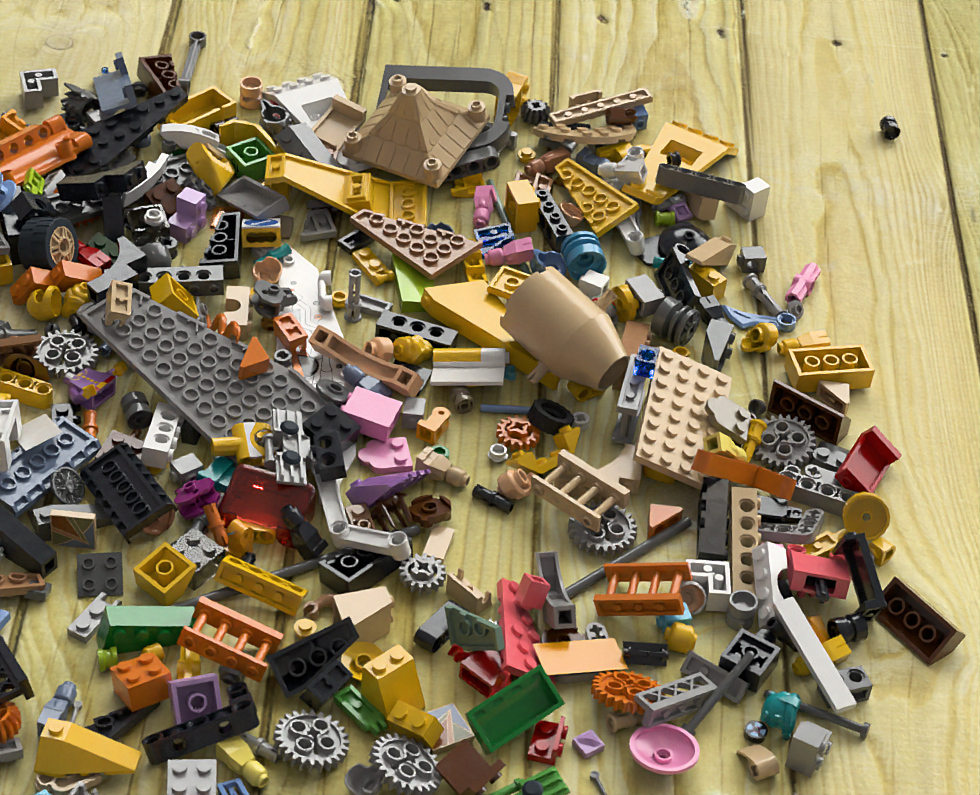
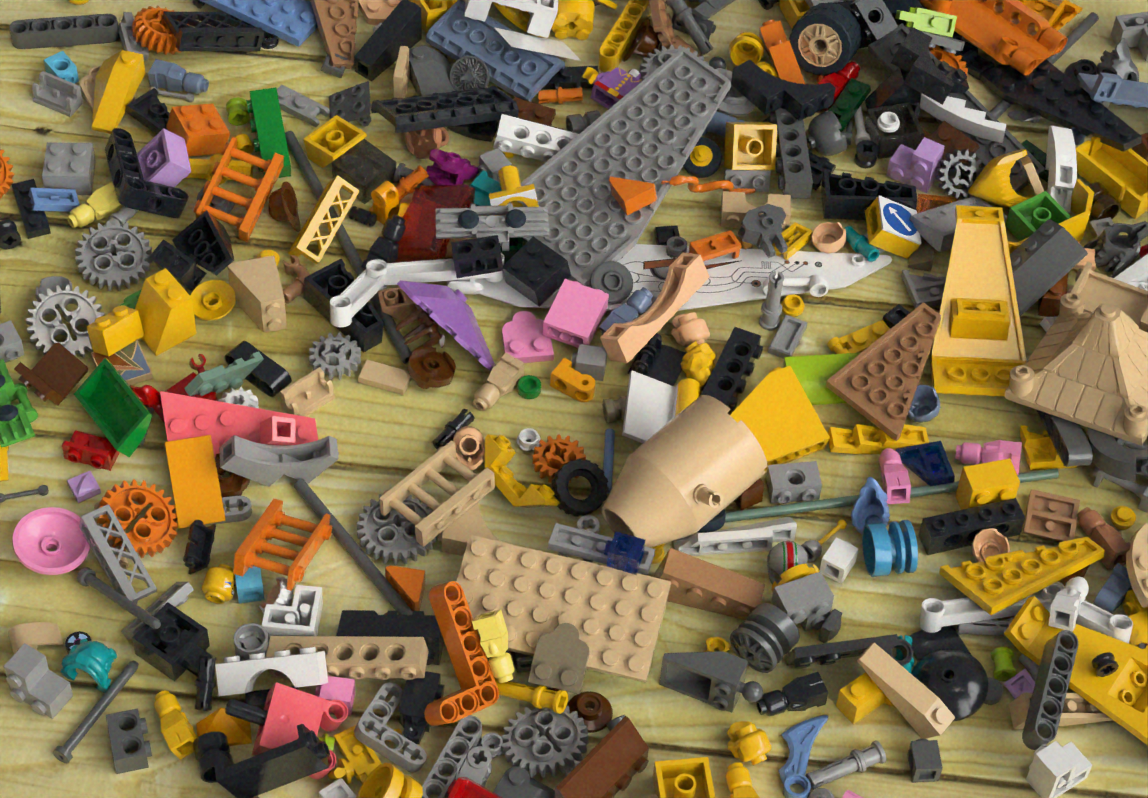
camera: 95 degrees right, 10 degrees up
(118, 302) = (691, 65): tan hinge -> none
(250, 608) = (284, 205): none -> reddish brown piece
(506, 282) = (812, 459): yellow plate -> none
(814, 655) = (155, 695): white tile -> none

